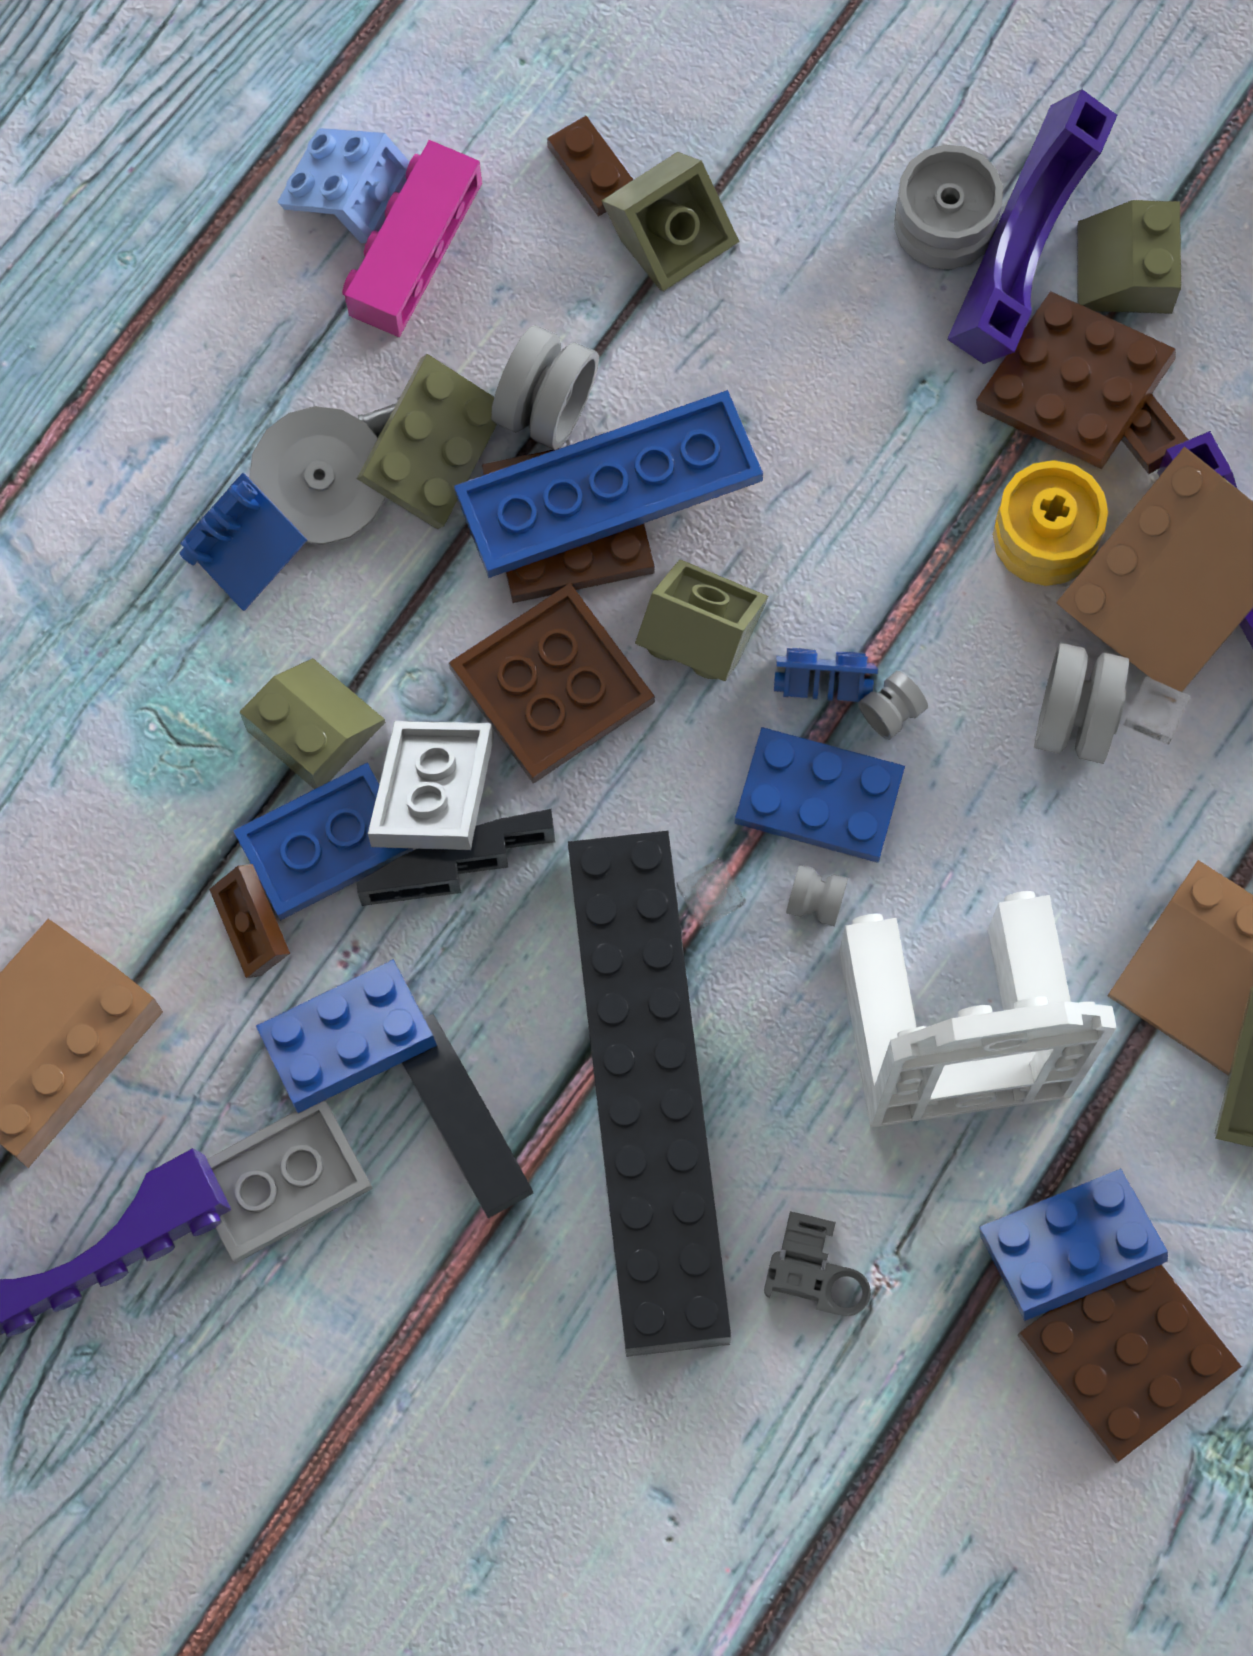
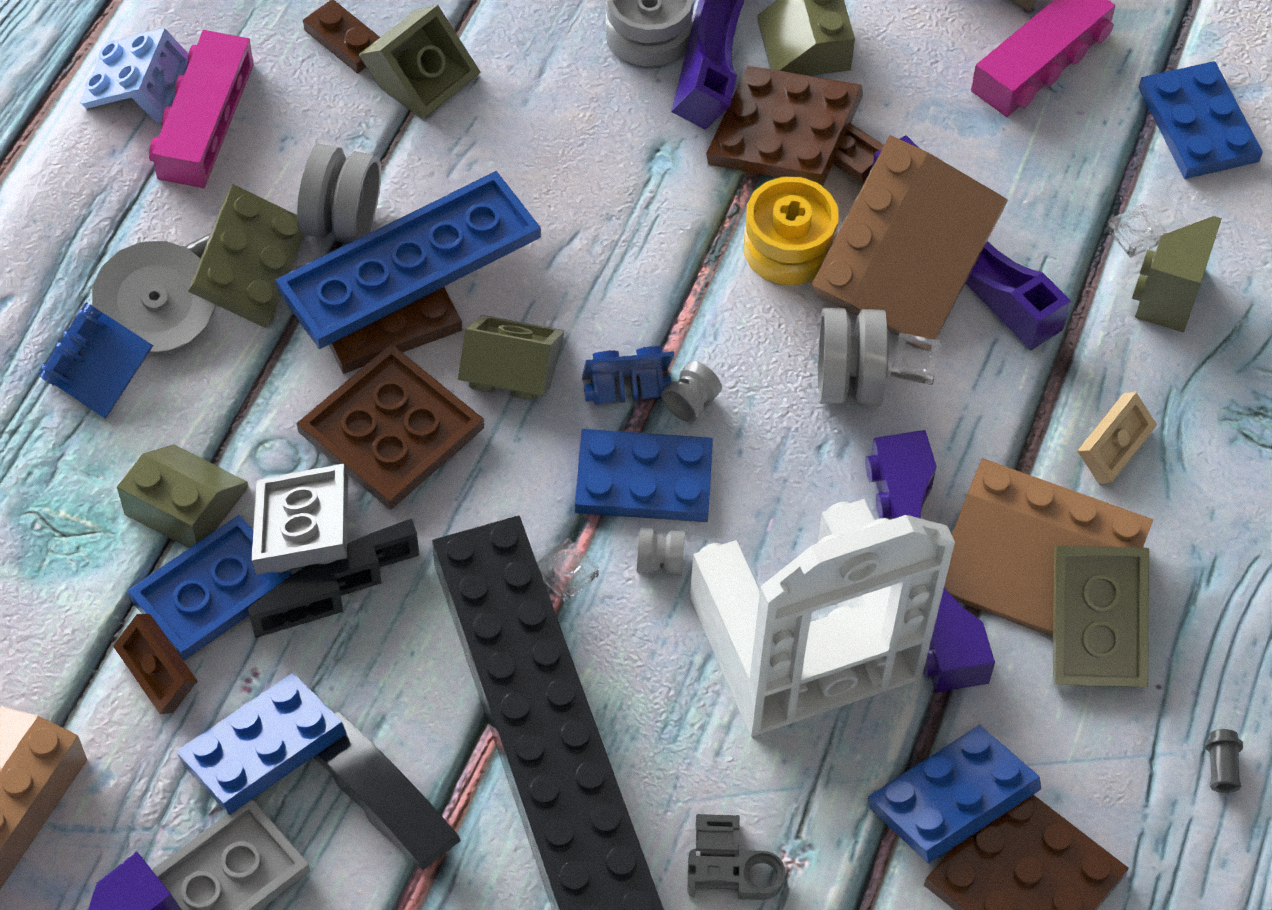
camera: 15 degrees left, 15 degrees down
(1108, 856) = (904, 478): none -> dark purple arch

